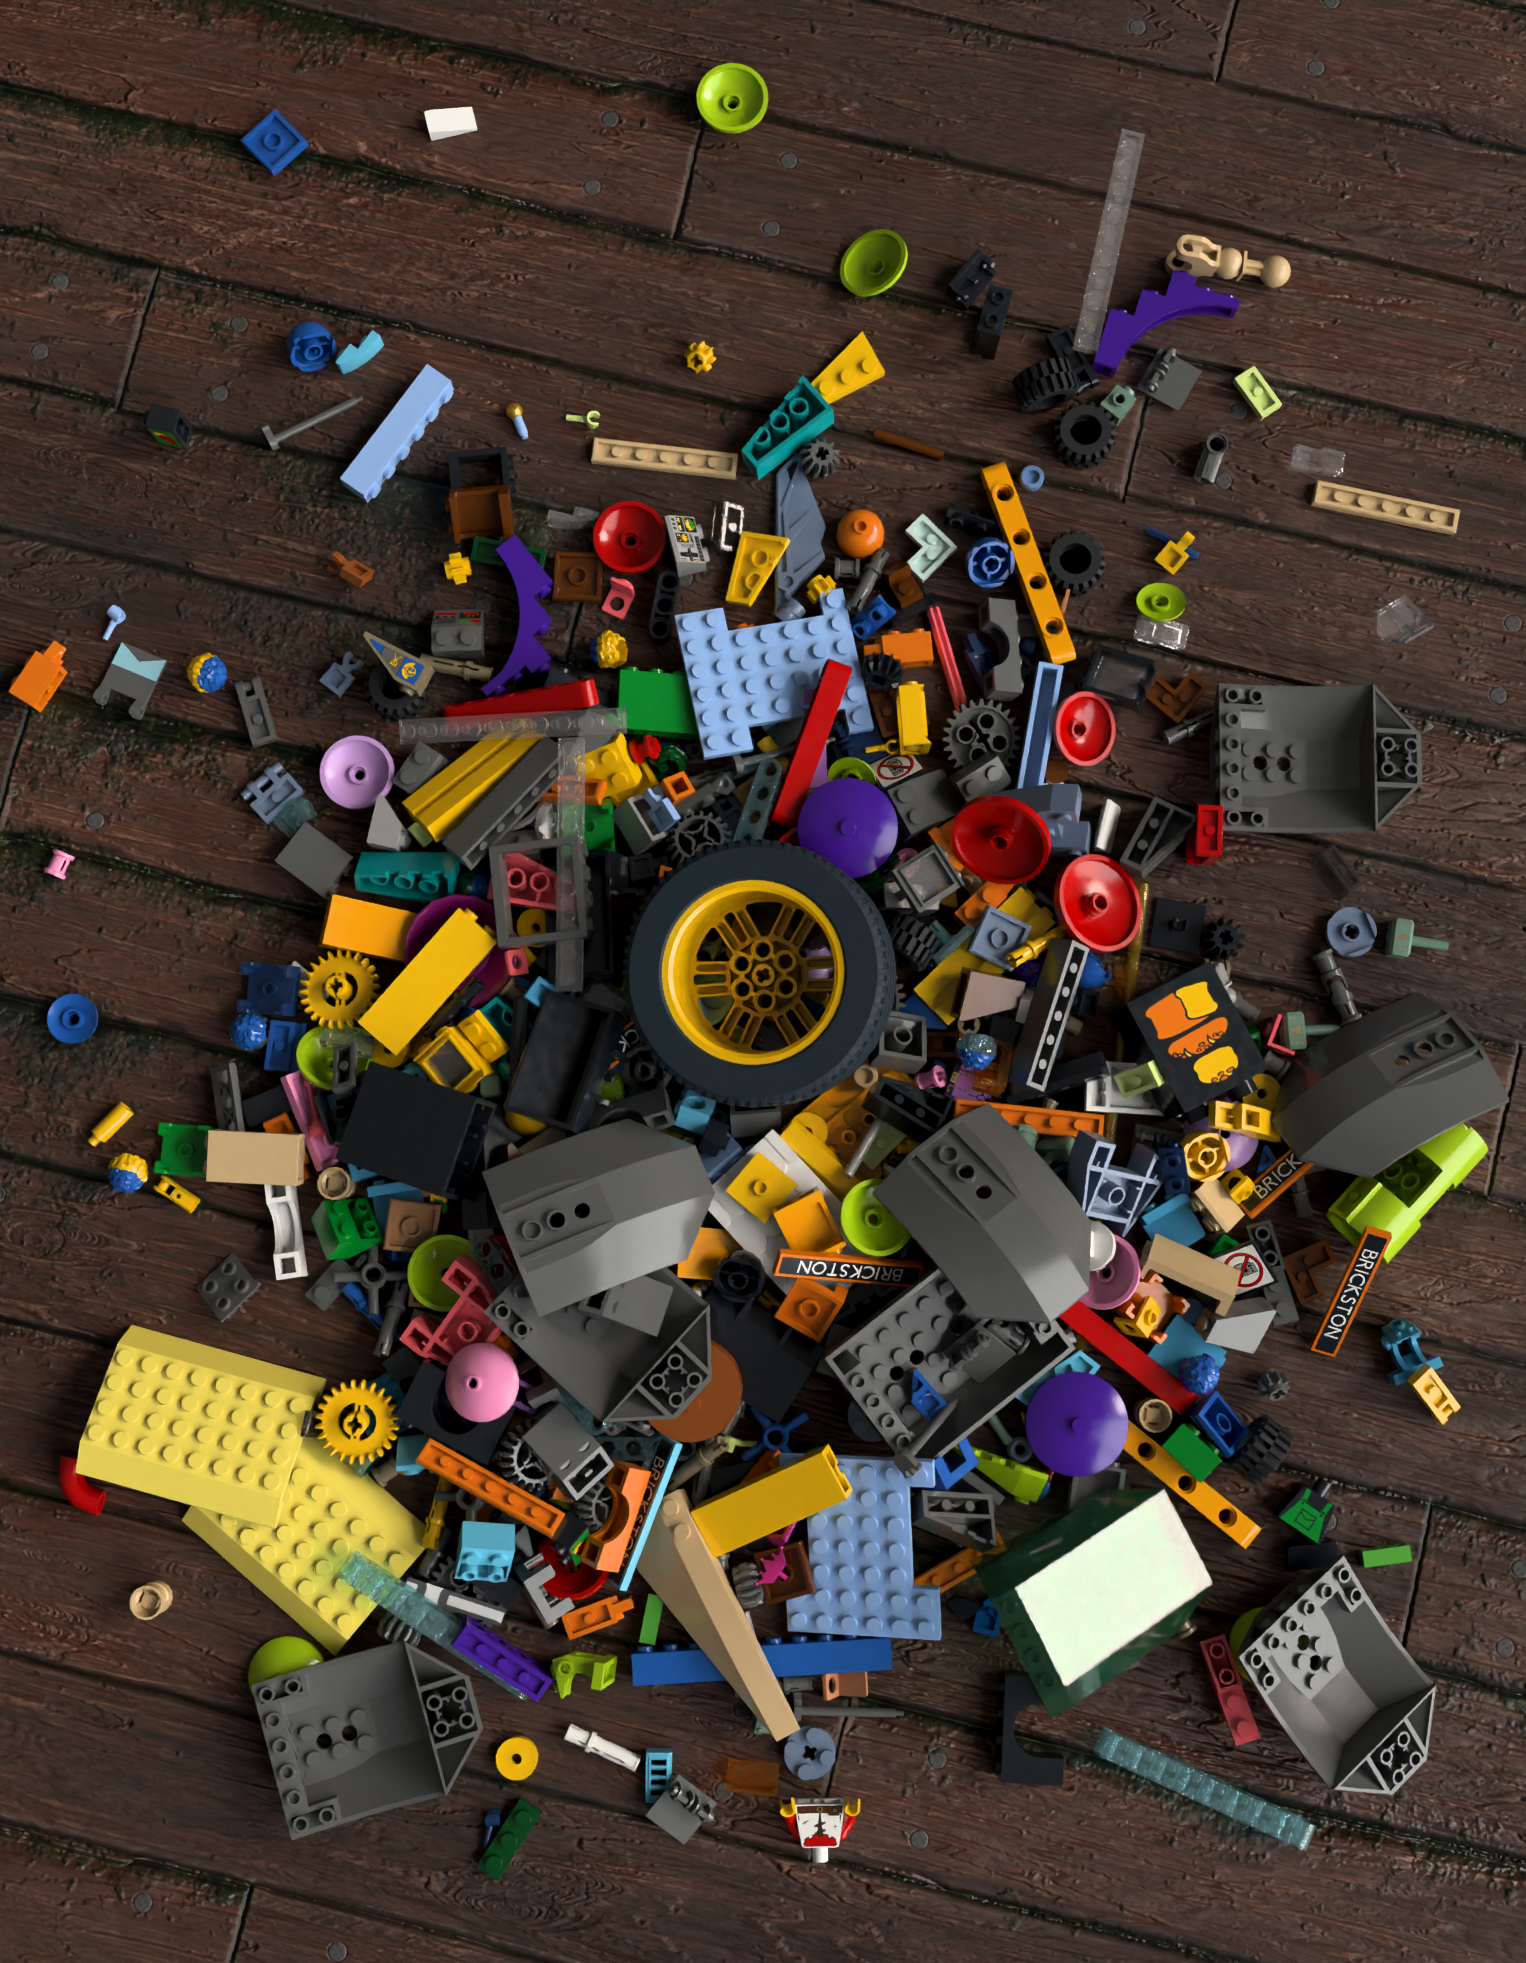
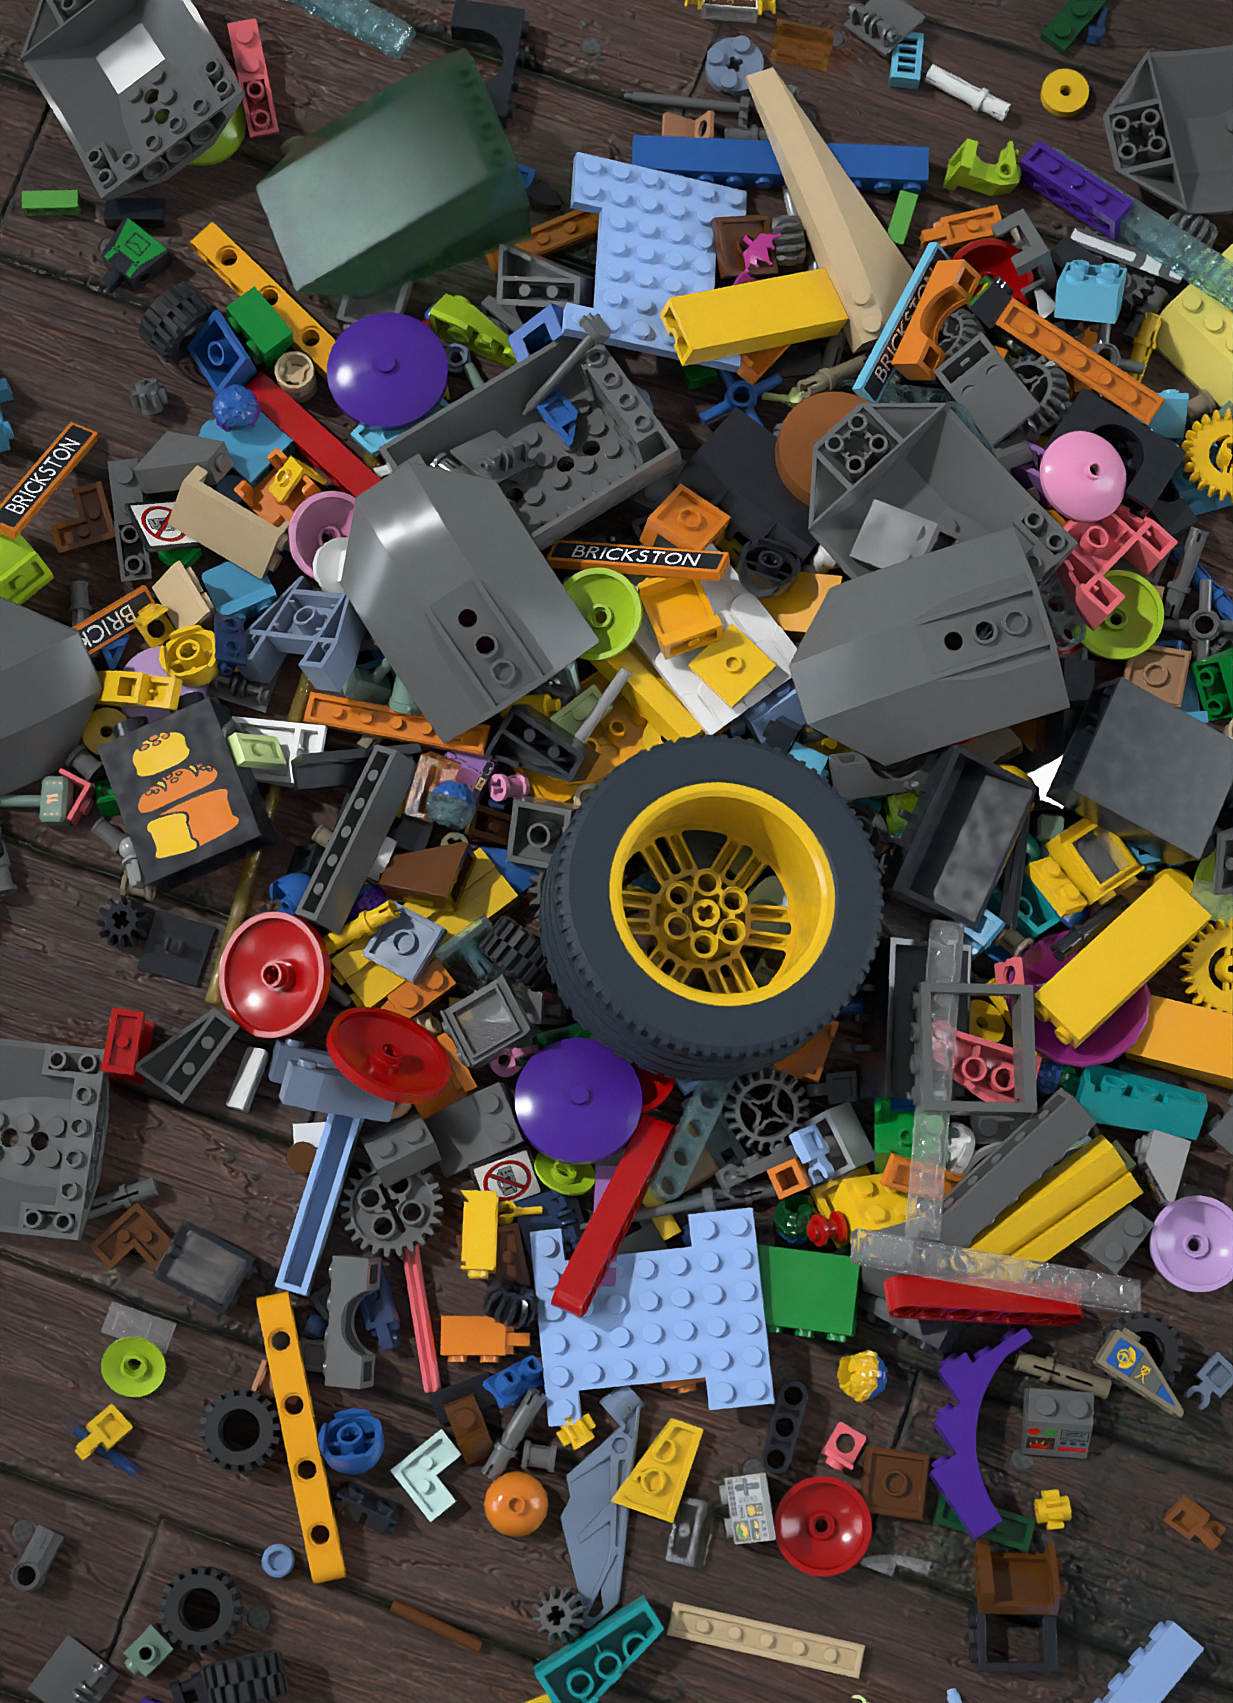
camera: 175 degrees left, 5 degrees down
(1093, 728) = (247, 1200): red dish -> none

